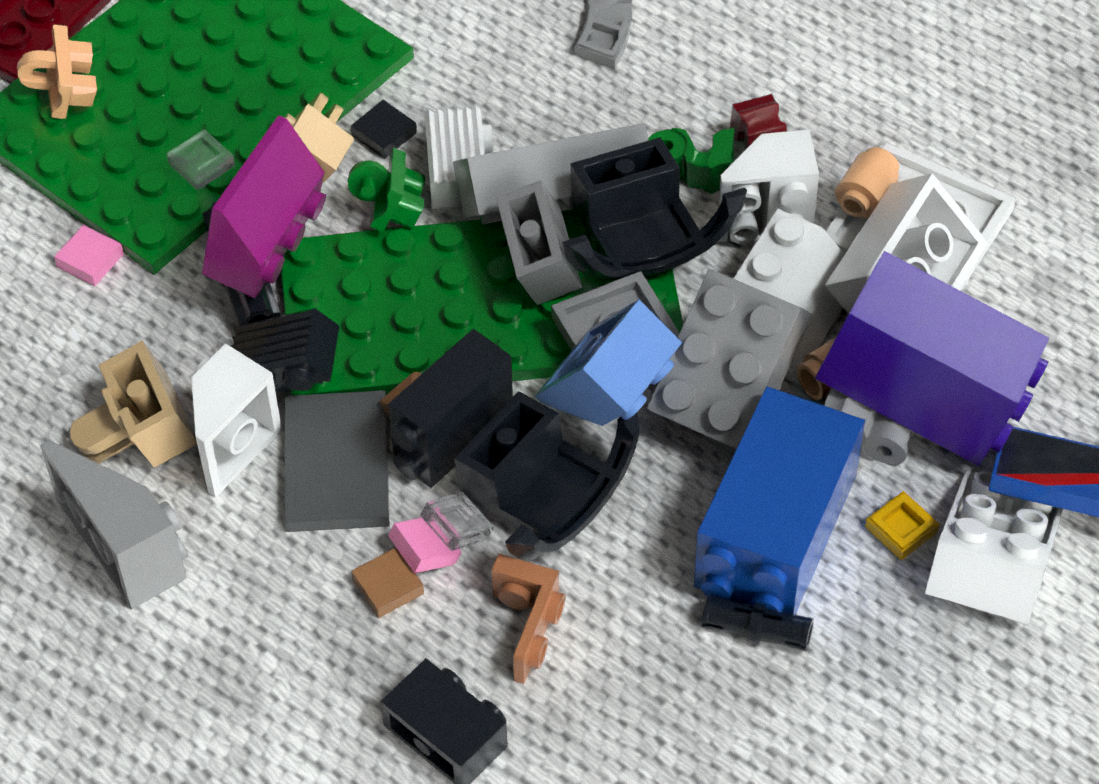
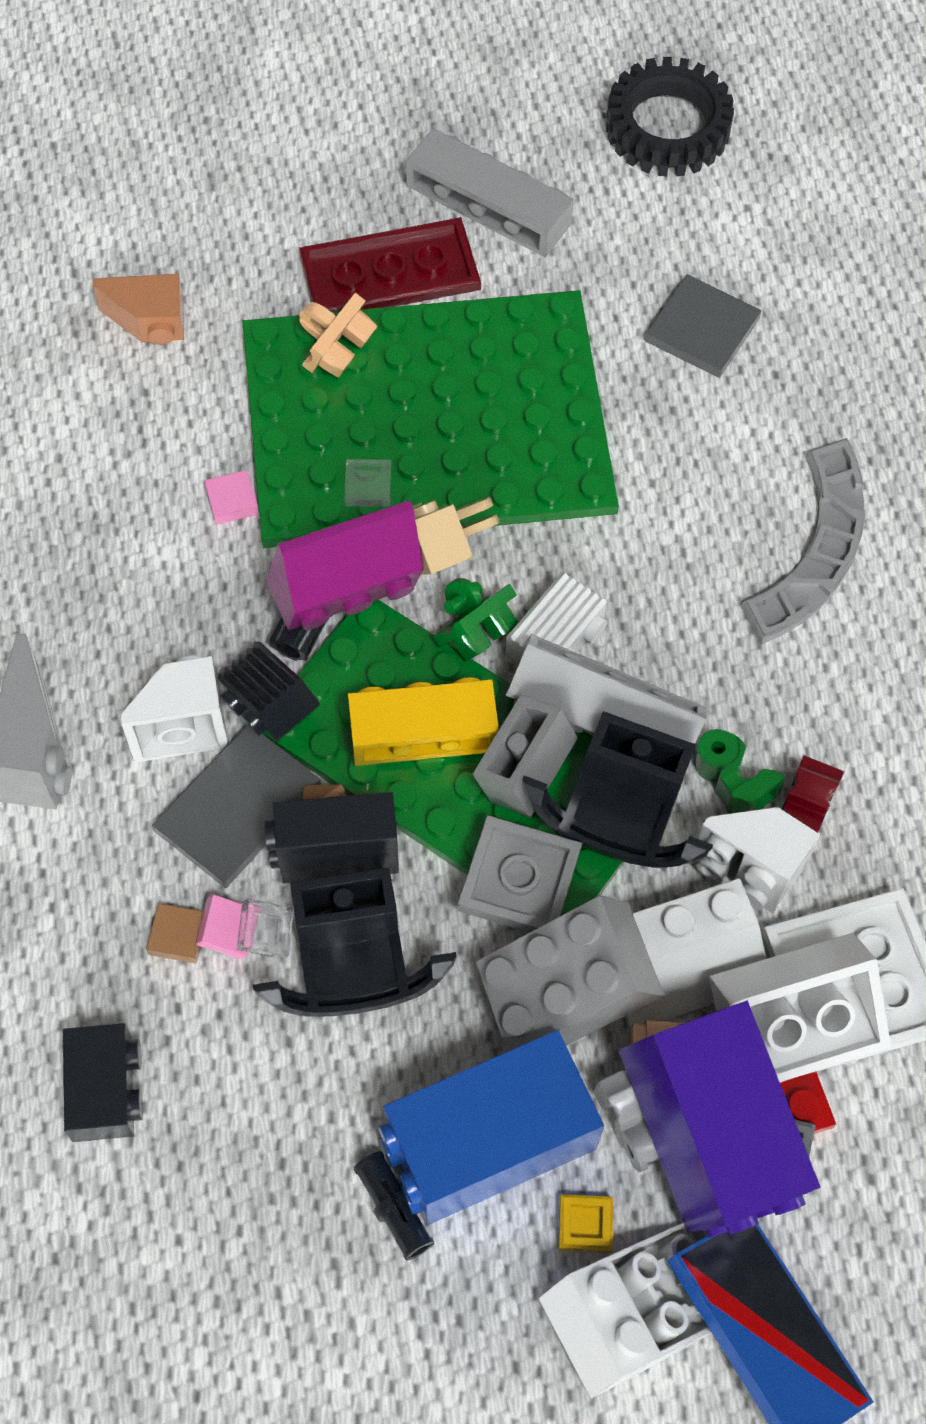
camera: 40 degrees right, 10 degrees up
(137, 411) = (133, 647): tan brick -> none
(383, 128) = (533, 558): black tile -> none
(432, 282) = (422, 721): none -> yellow brick
(524, 586) = (255, 1056): nougat bracket -> none
(612, 367) = (461, 912): medium blue slope -> none
(867, 181) = (840, 913): light nougat brick -> none

